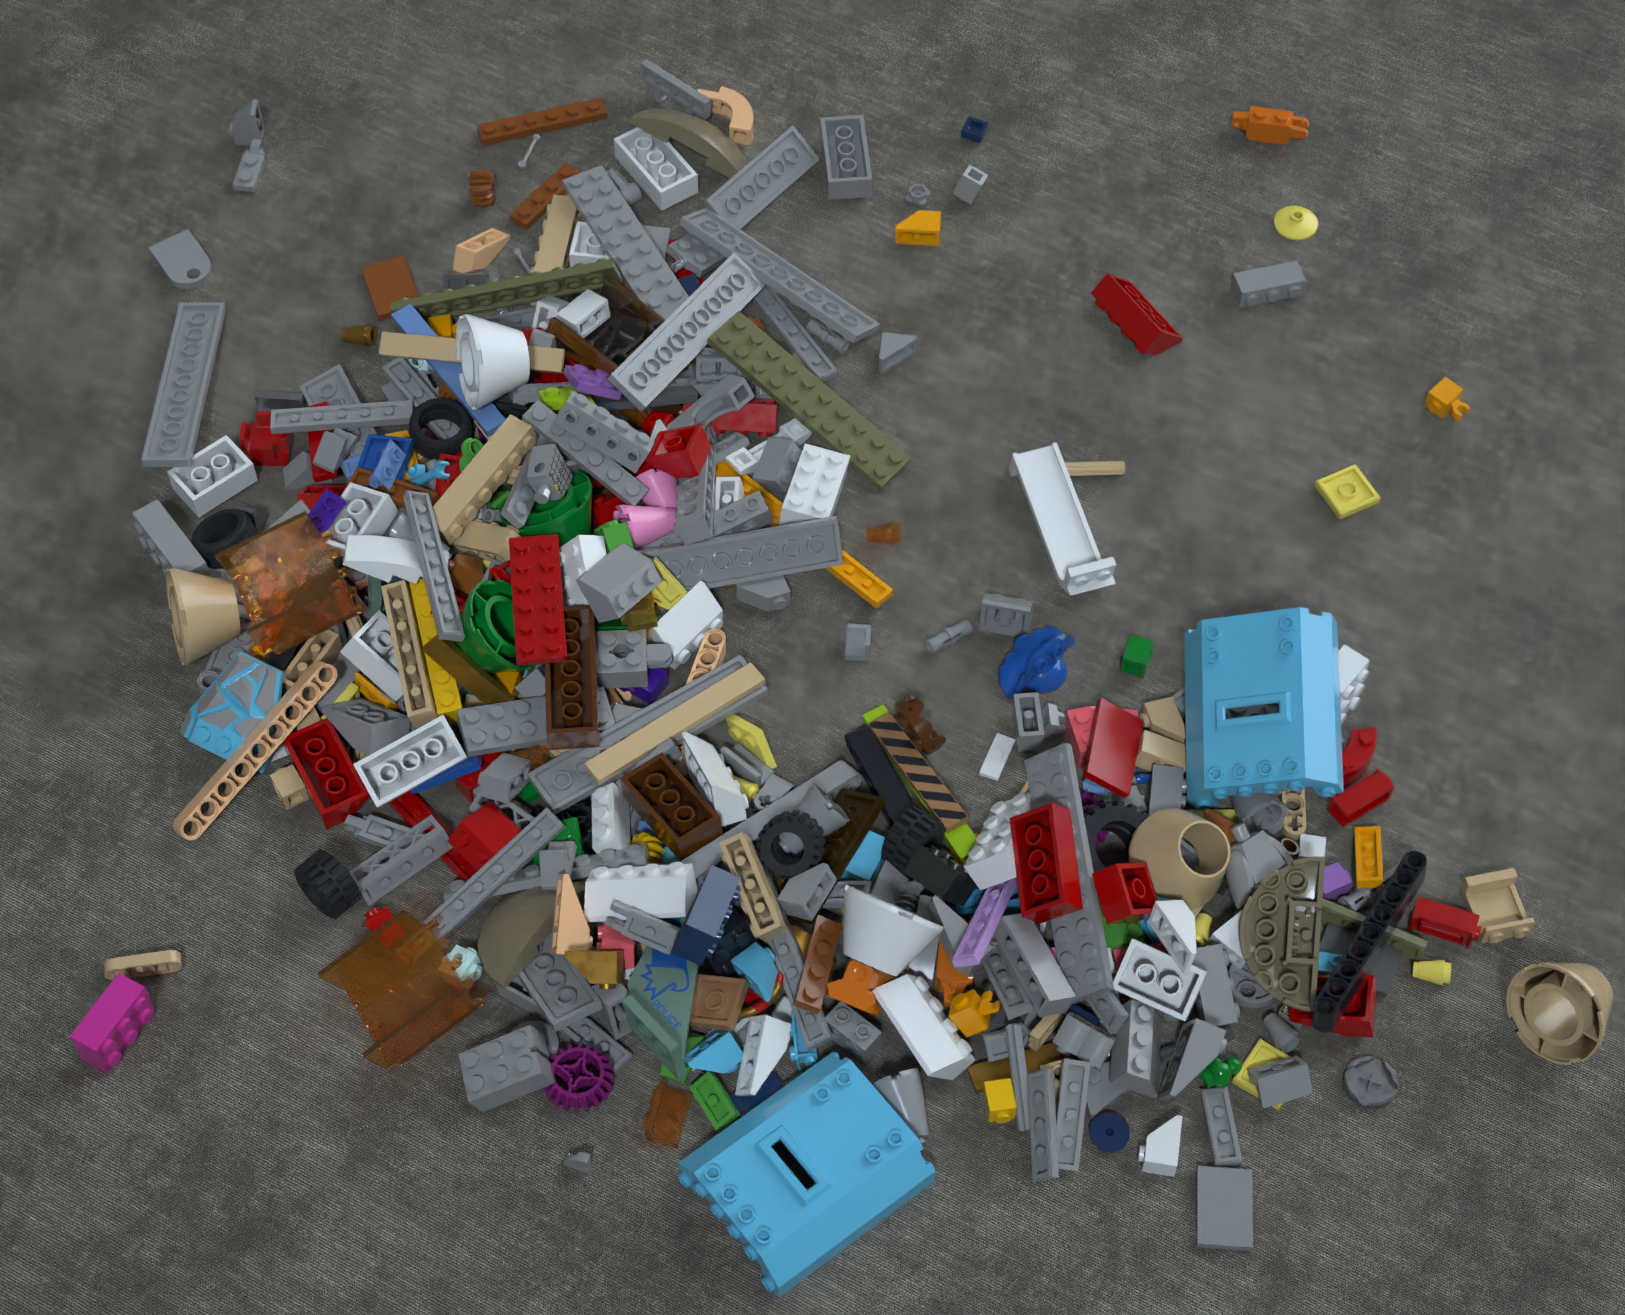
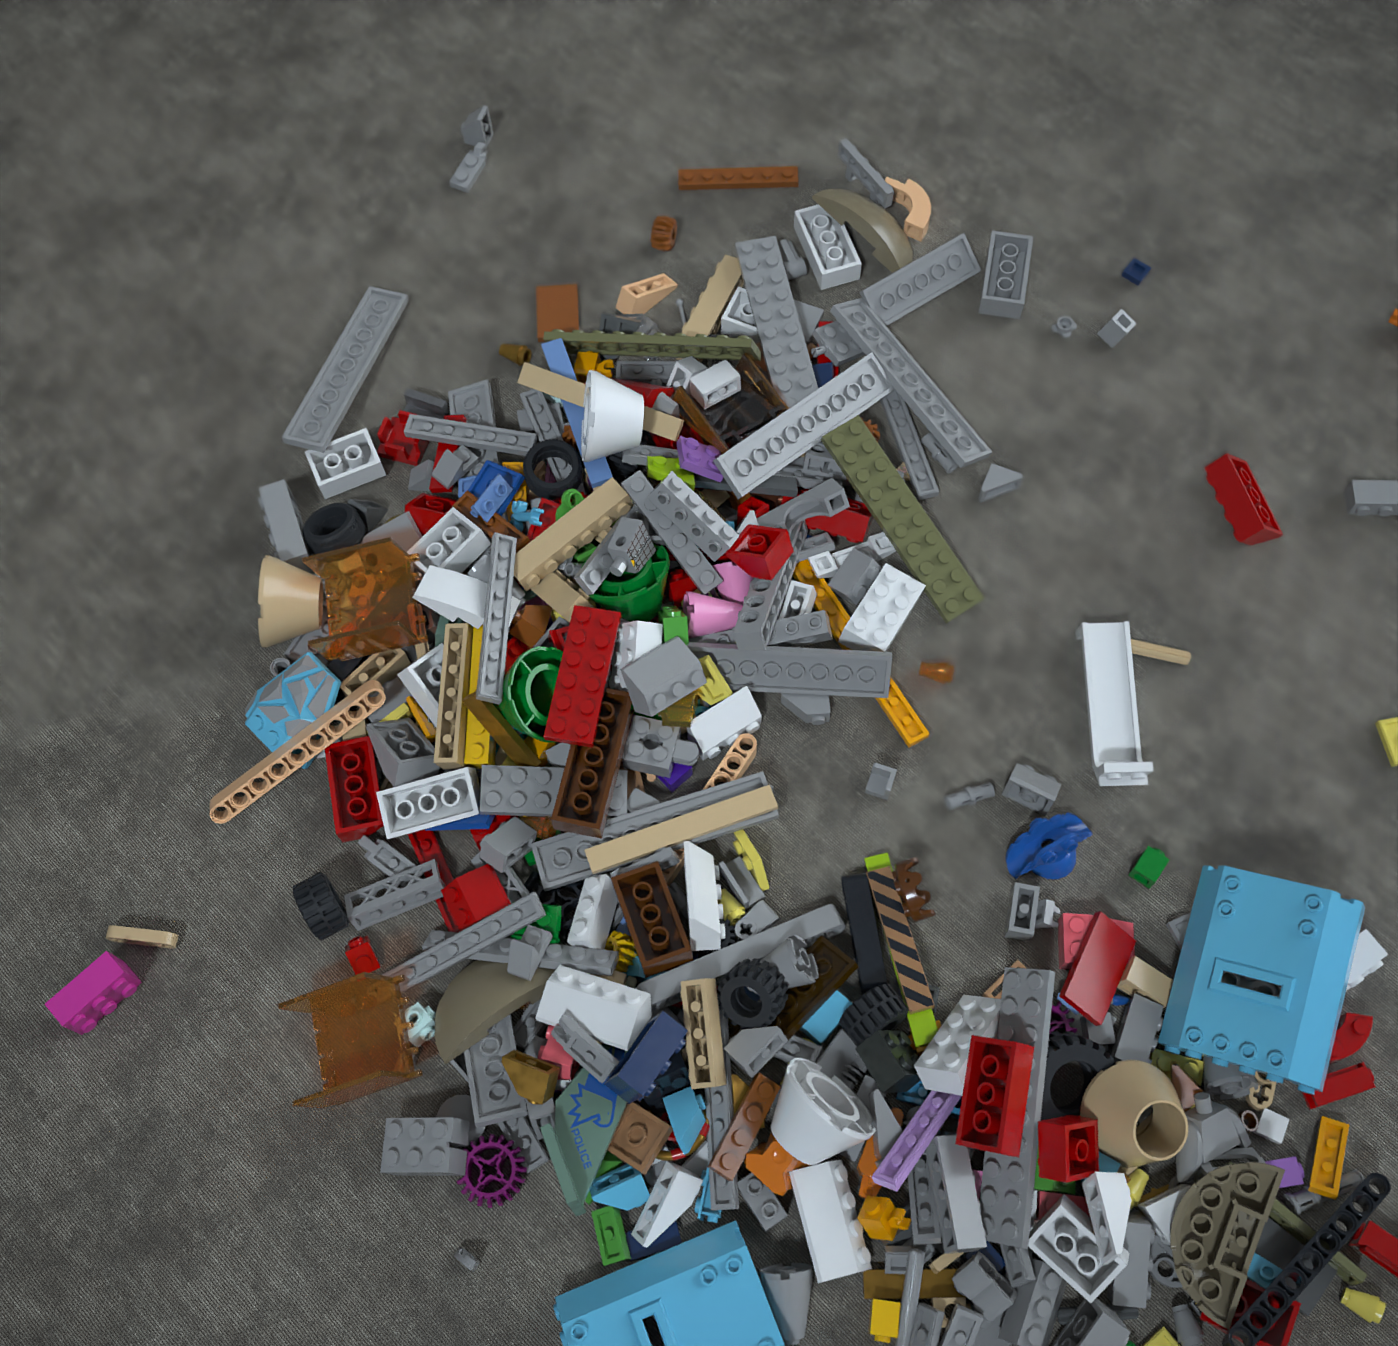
camera: 20 degrees right, 10 degrees up
(180, 258) = (384, 243): light grey tile -> none
(289, 786) = (318, 791): tan brick -> none
(326, 510) = (419, 533): dark purple bracket -> none
(522, 163) = (708, 216): light grey hinge -> none
(536, 204) = (707, 260): dark orange plate -> none
(569, 923) = (519, 1024): light nougat slope -> none
(666, 1116) = (562, 1236): clear orange bracket -> none
(919, 229) = (1056, 362): light orange slope -> none
(997, 757) = (982, 936): white piece -> none
(1164, 719) = (1157, 947): tan slope -> none

